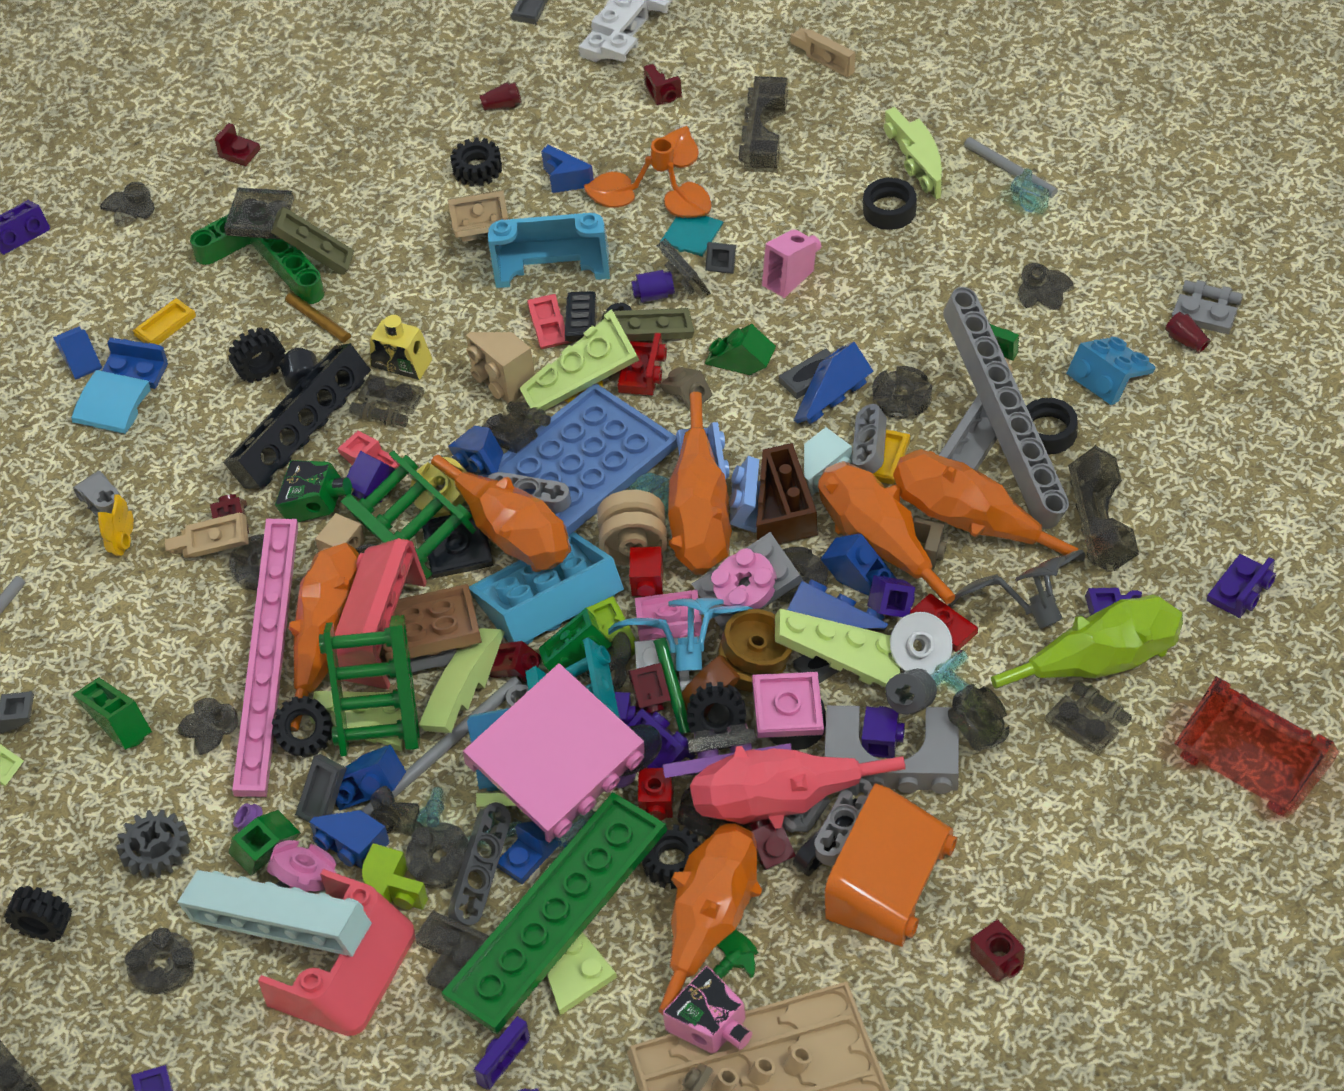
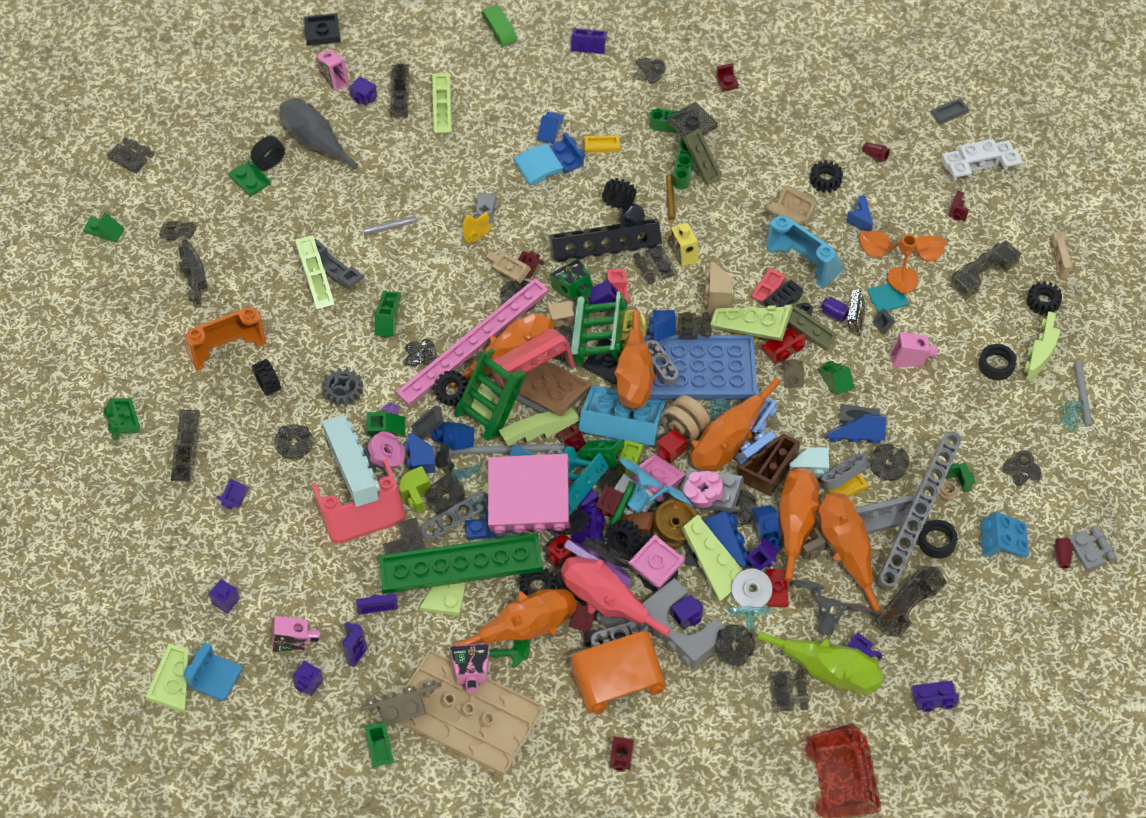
camera: 40 degrees right, 5 degrees up
(860, 116) = (1044, 289): none -> black tyre
(900, 696) = (716, 605): dark grey piece -> none

